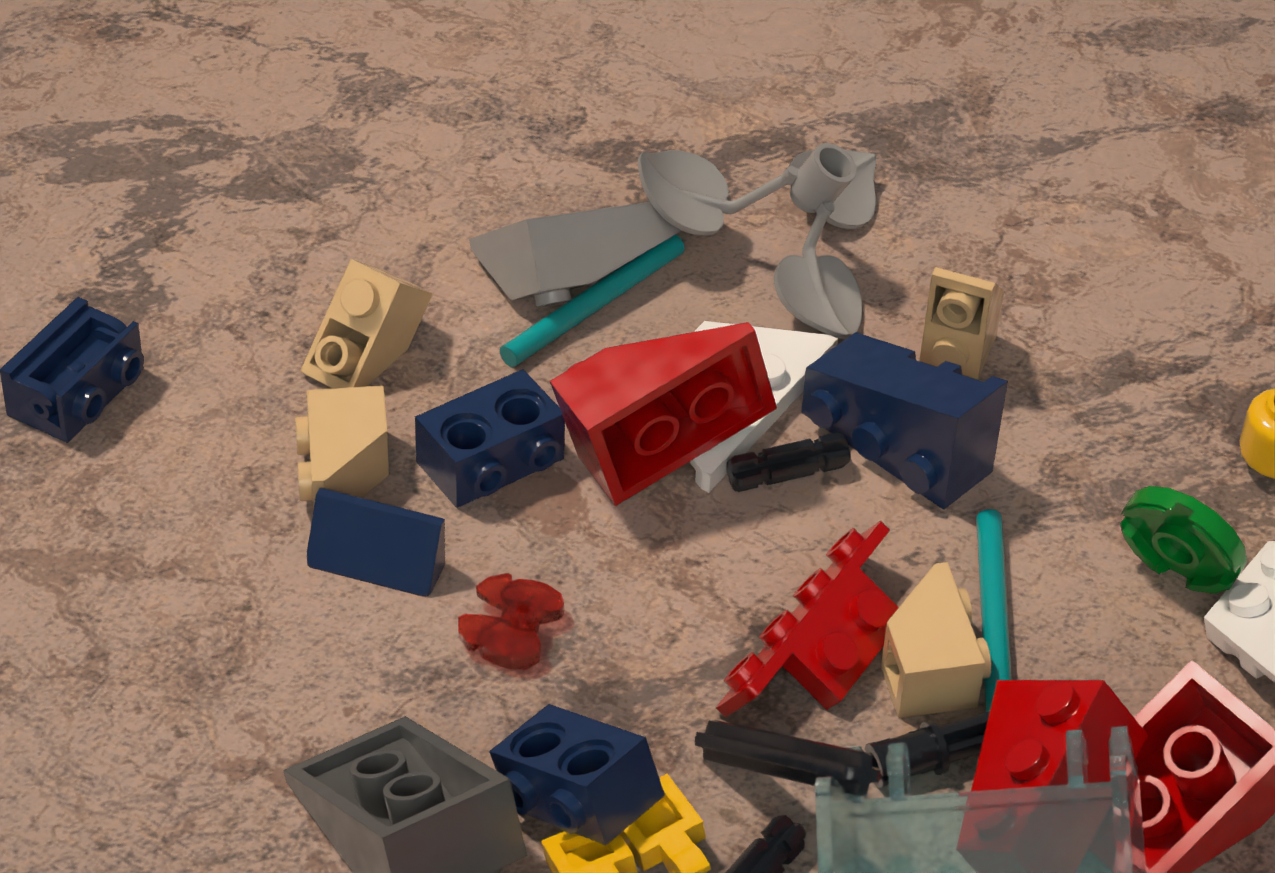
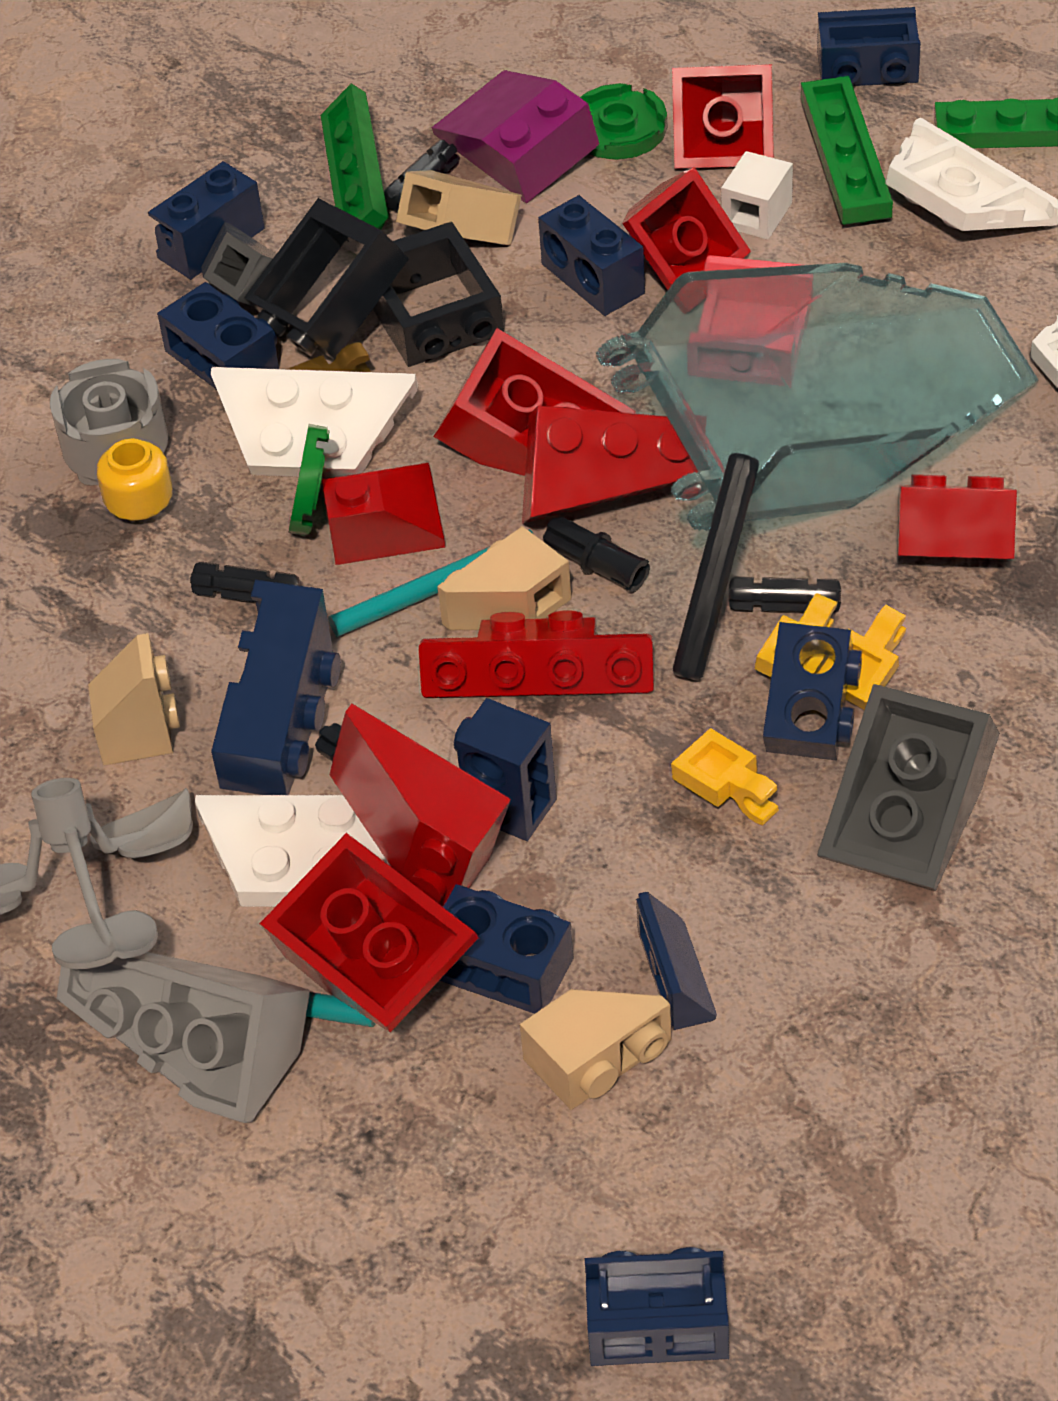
camera: 115 degrees left, 5 degrees up
(365, 327) = (430, 1114): tan slope -> none
(512, 638) = (650, 841): clear red piece -> none
(544, 322) = (367, 933): none -> red slope
(554, 677) = (722, 769): none -> yellow plate
(666, 501) = (513, 757): none -> dark blue brick
(1093, 478) = (233, 581): none -> black axle
(1132, 607) = (382, 513): none -> red slope

